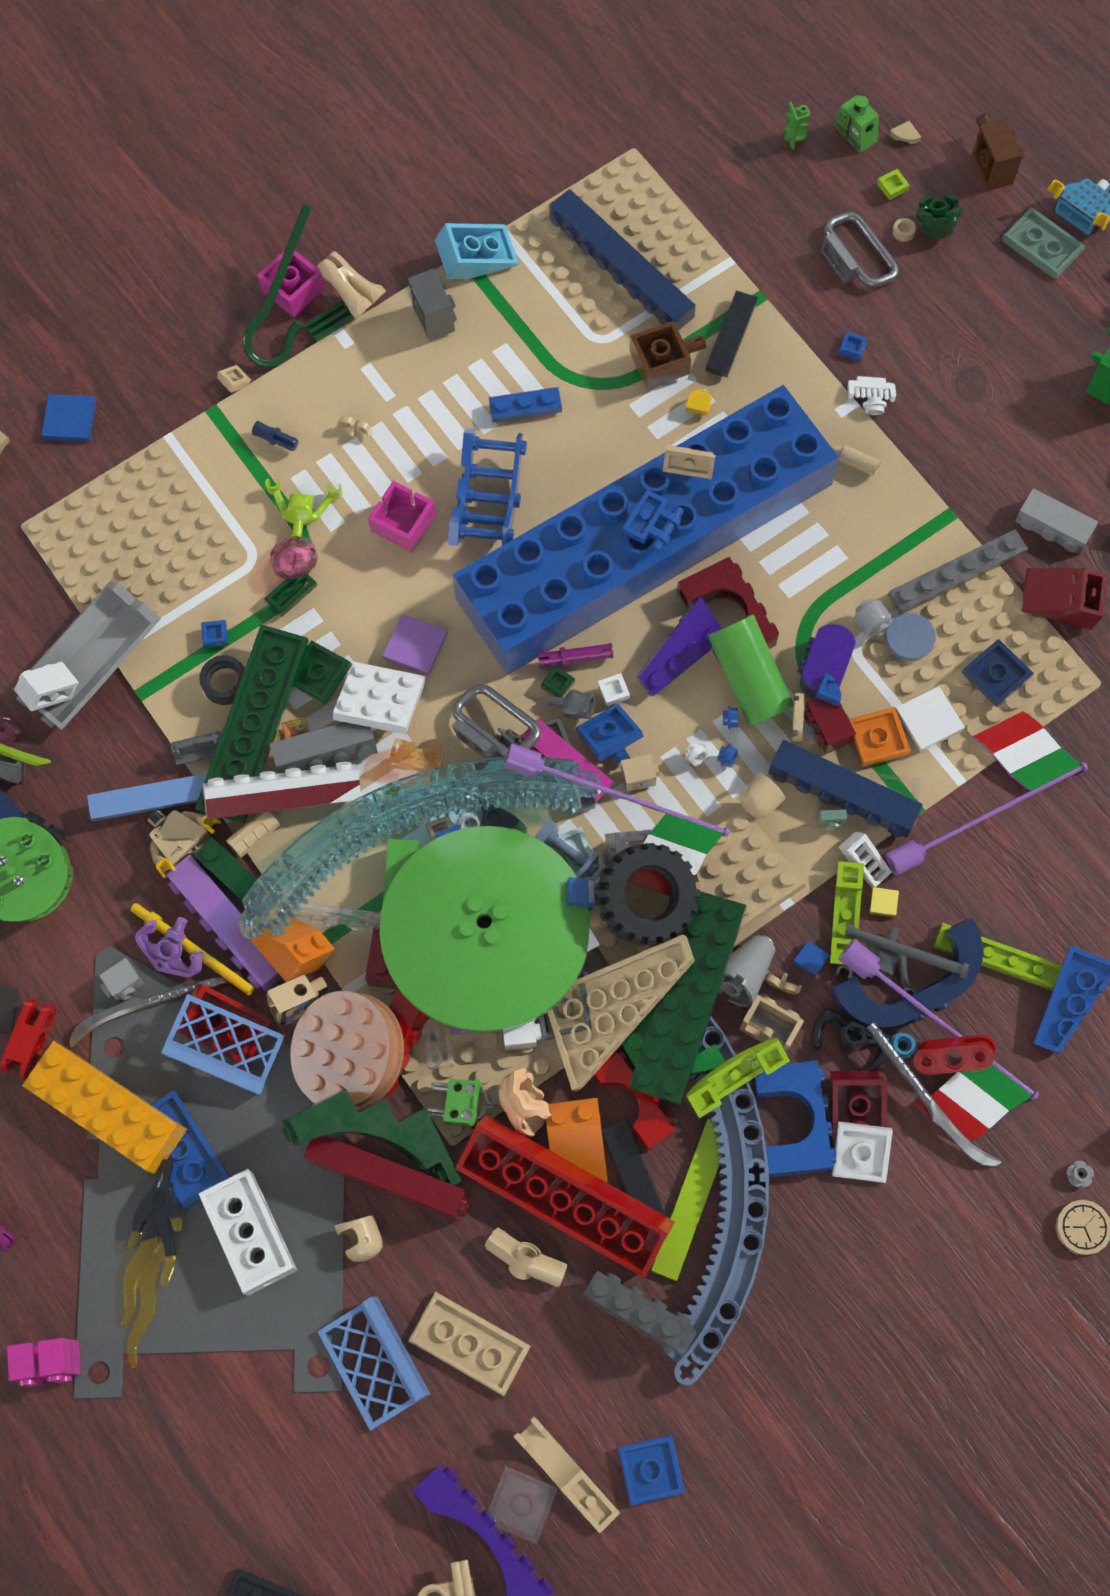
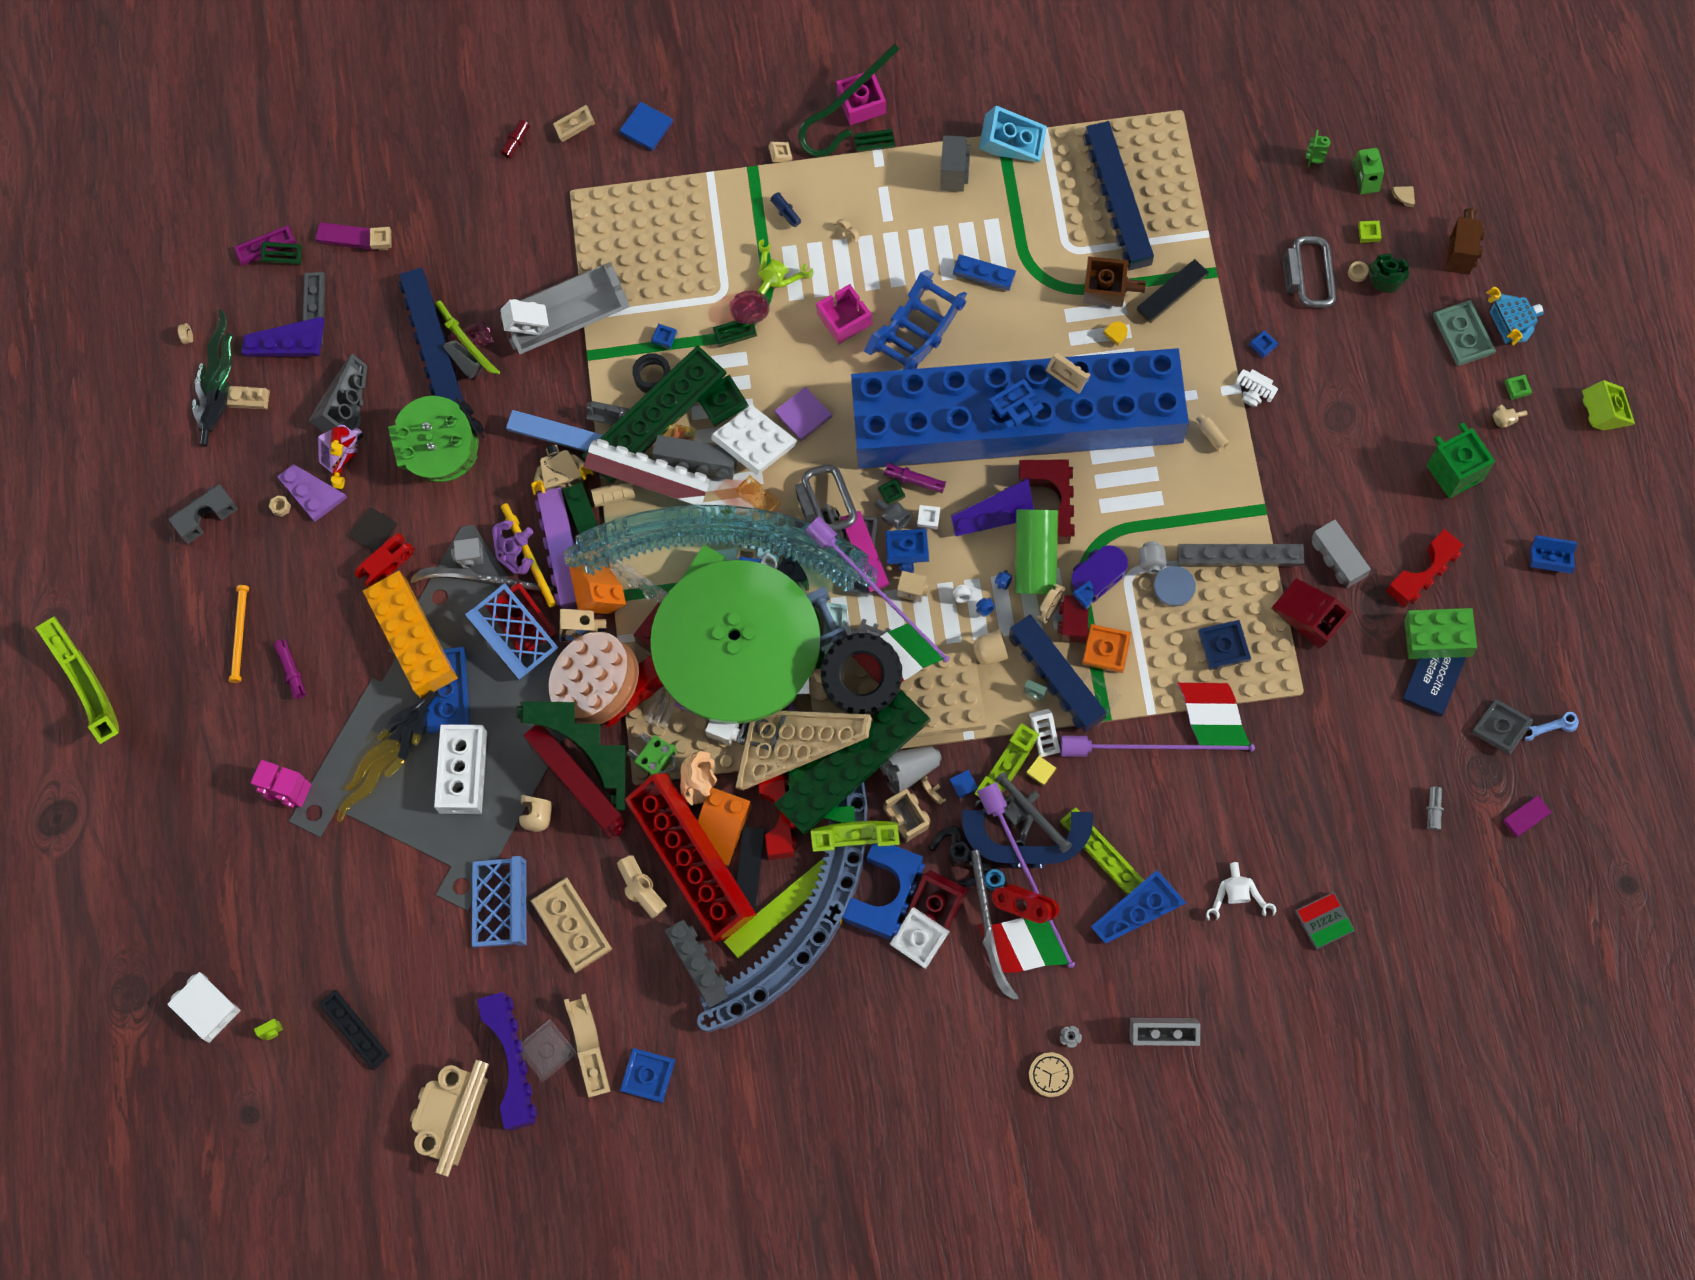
camera: 30 degrees right, 0 degrees up
(353, 288) = (903, 122): tan piece -> none
(580, 892) = (815, 649): blue tile -> none
(929, 719) = (1153, 653): white tile -> none

